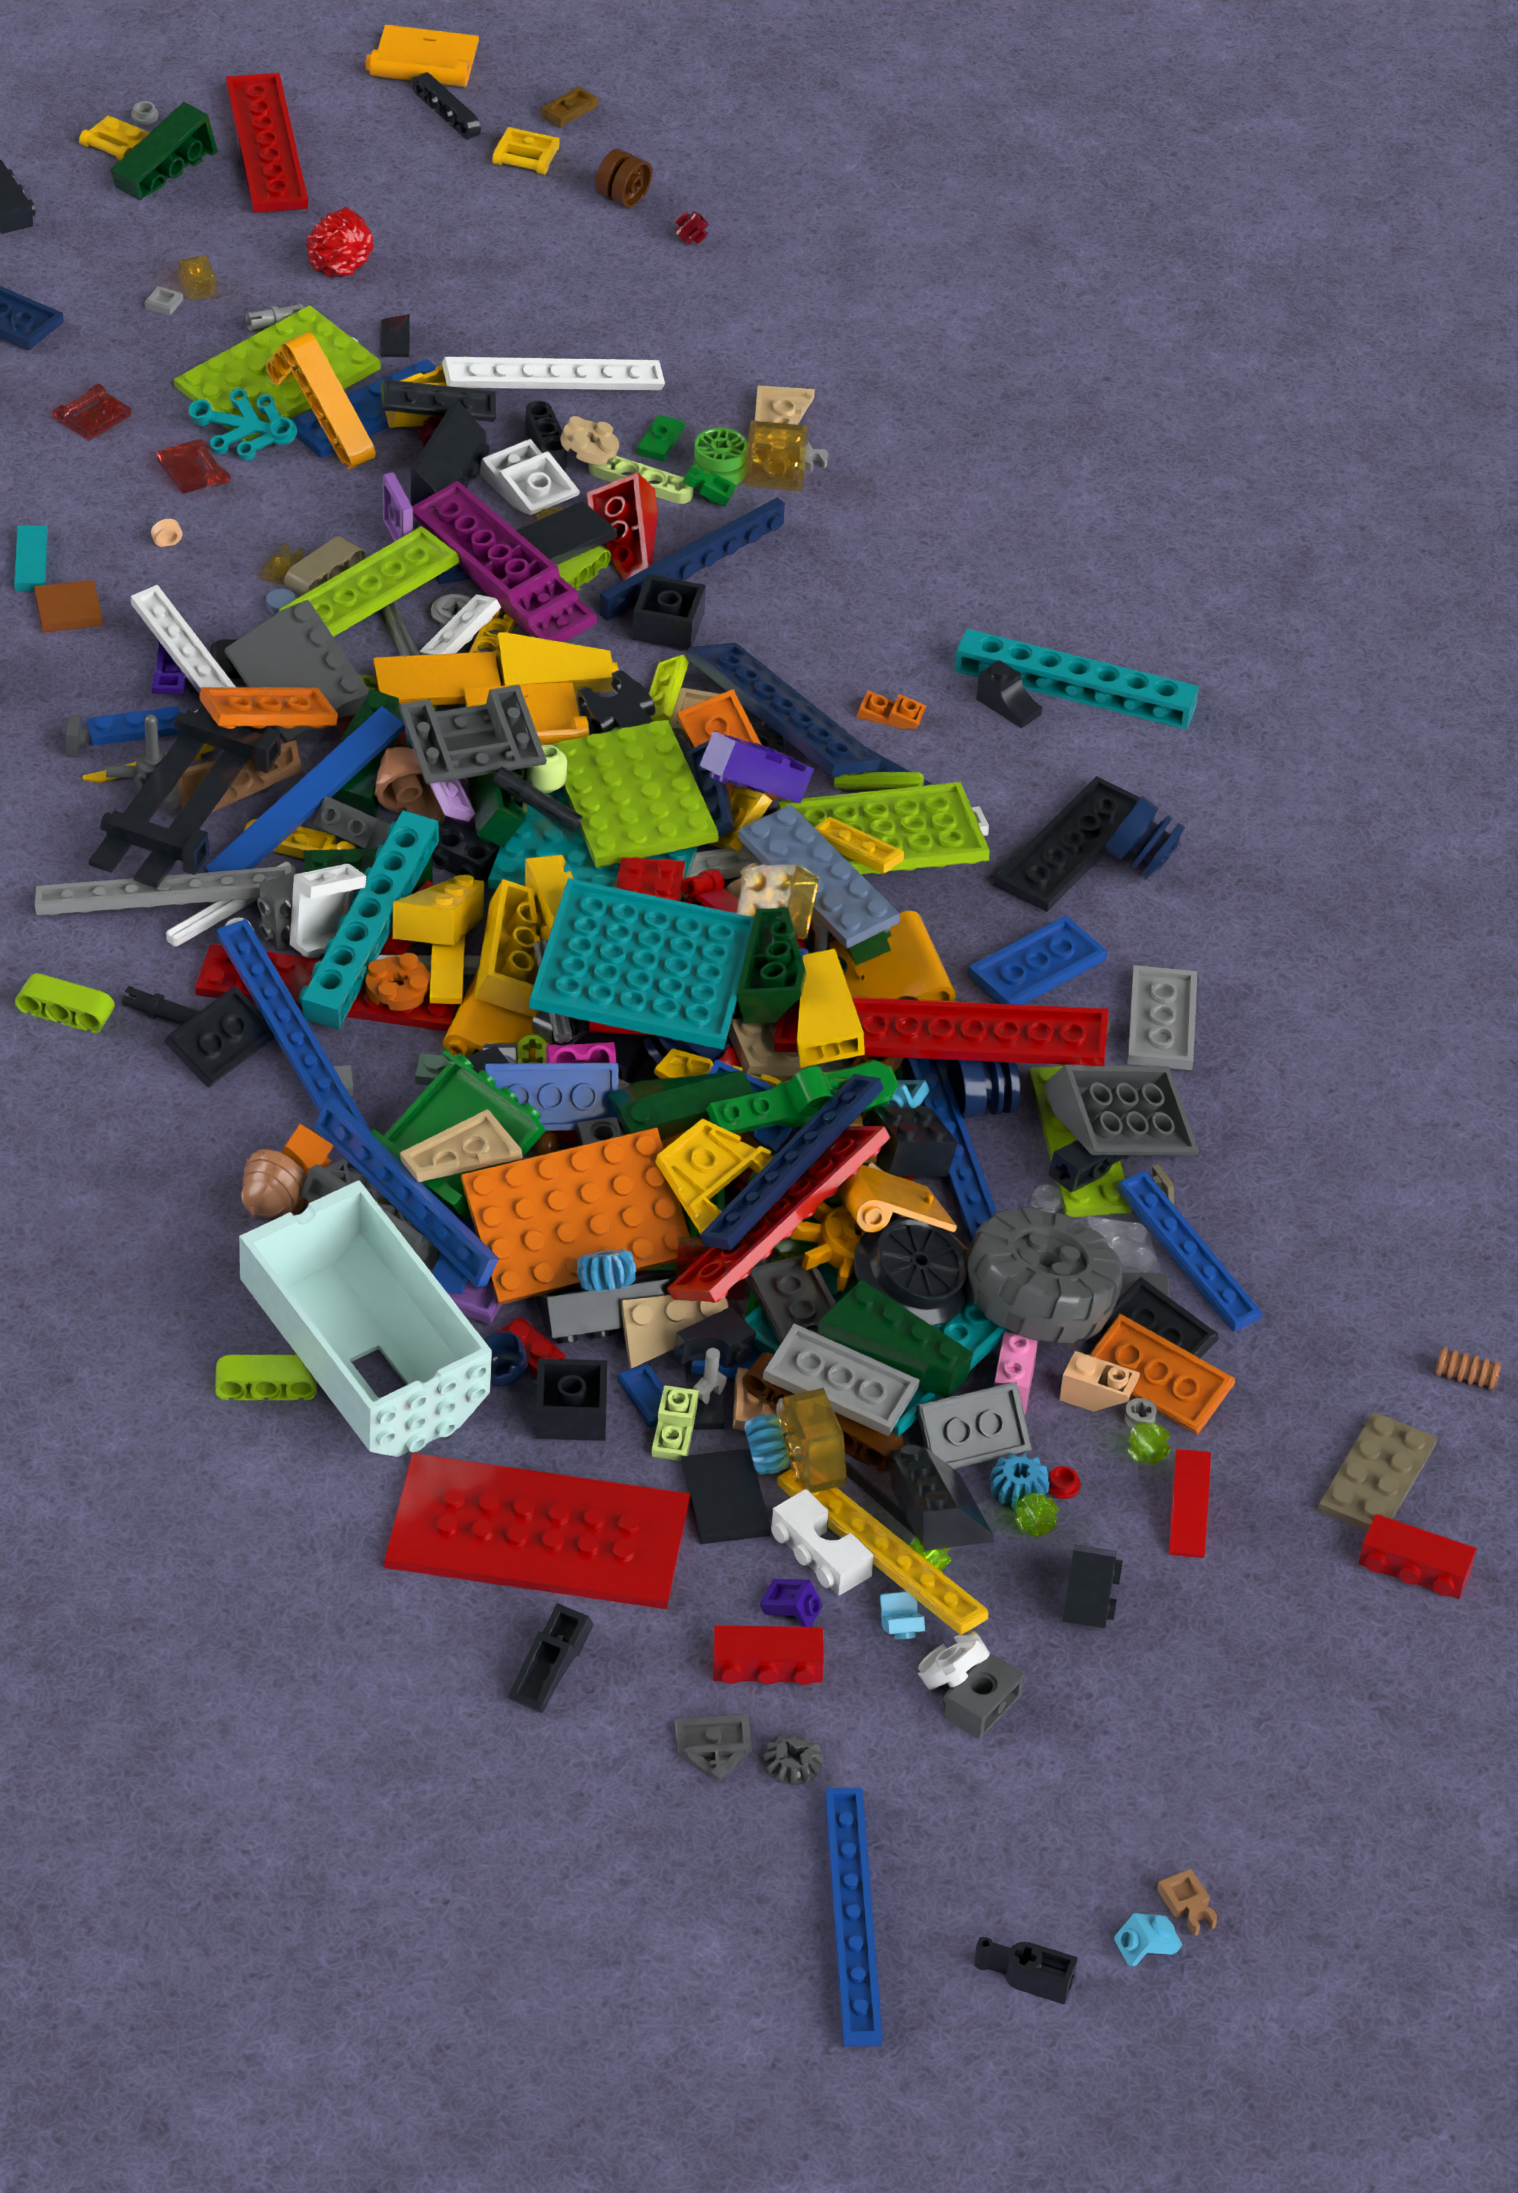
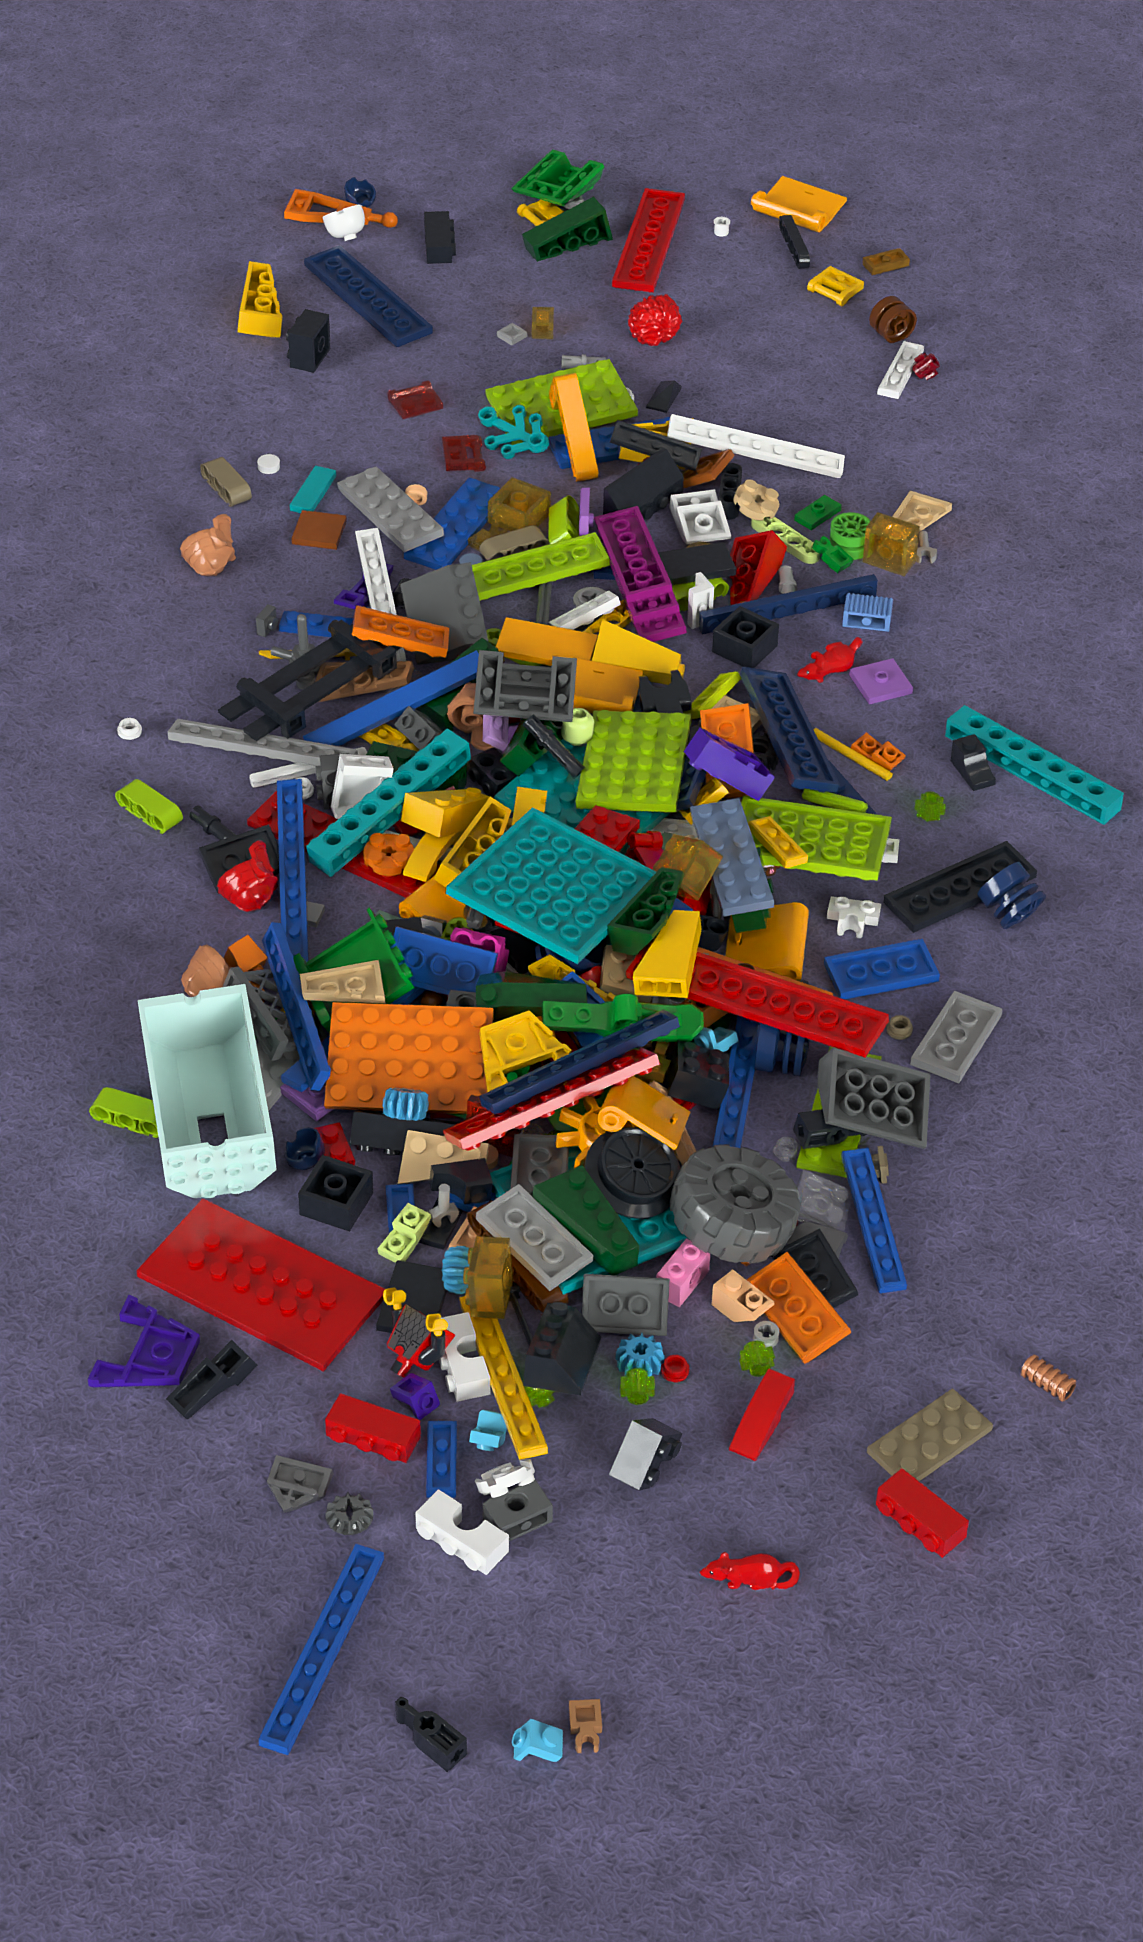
camera: 25 degrees right, 0 degrees up
(111, 91) = (558, 180): none -> green slope
(146, 557) = (390, 509): none -> light grey plate
(235, 558) = (460, 520): none -> blue plate
(254, 1064) = (250, 882): none -> red head
(306, 516) = (519, 505): none -> clear yellow brick
(346, 105) = (721, 226): none -> white axle
(369, 522) = (563, 520): none -> lime beam
(470, 1648) = (159, 1355): none -> dark purple wing
(511, 414) = (708, 468): none -> dark orange tile
(593, 576) = (699, 600): none -> white panel
(660, 239) = (900, 370): none -> white tile
(677, 536) = (787, 583): none -> light grey pin
(763, 1533) = (414, 1336): none -> torso
(785, 612) = (836, 659): none -> red animal
(789, 545) = (867, 612): none -> medium blue brick
(847, 624) = (881, 681): none -> medium lavender plate
(861, 1665) = (441, 1457): none -> blue tile
(869, 722) = (853, 755): none -> yellow bar
(960, 1749) = (477, 1547): none -> white arch
(969, 908) = (853, 914): none -> white plate
(988, 758) = (930, 806): none -> clear neon green gear
(1275, 1676) = (756, 1570): none -> red animal

